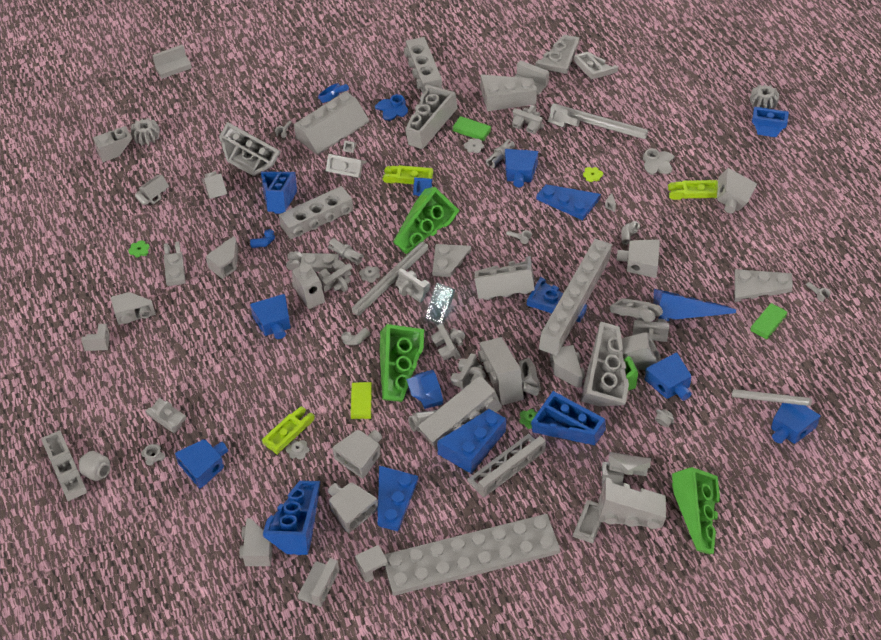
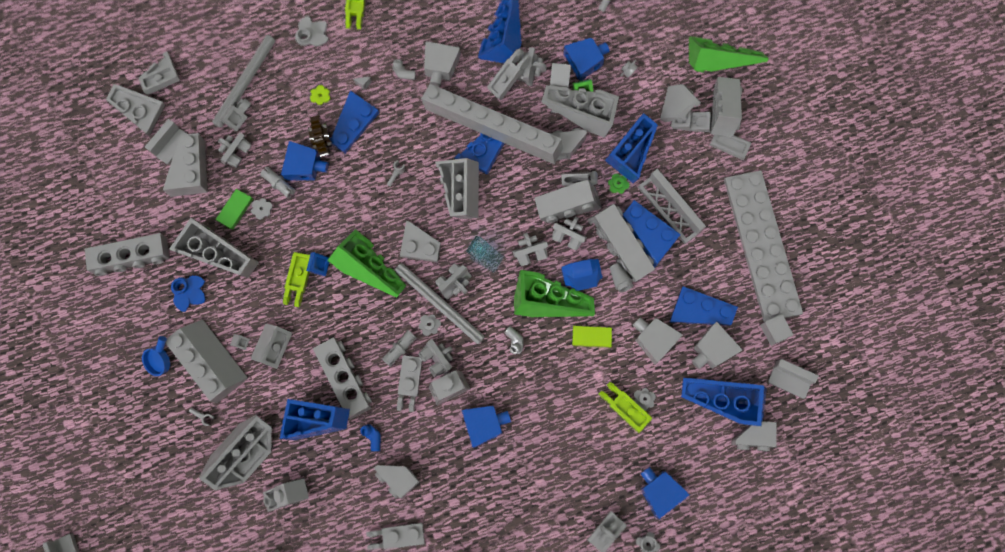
camera: 85 degrees left, 25 degrees up
(545, 170) = (319, 136): none -> dark brown gear

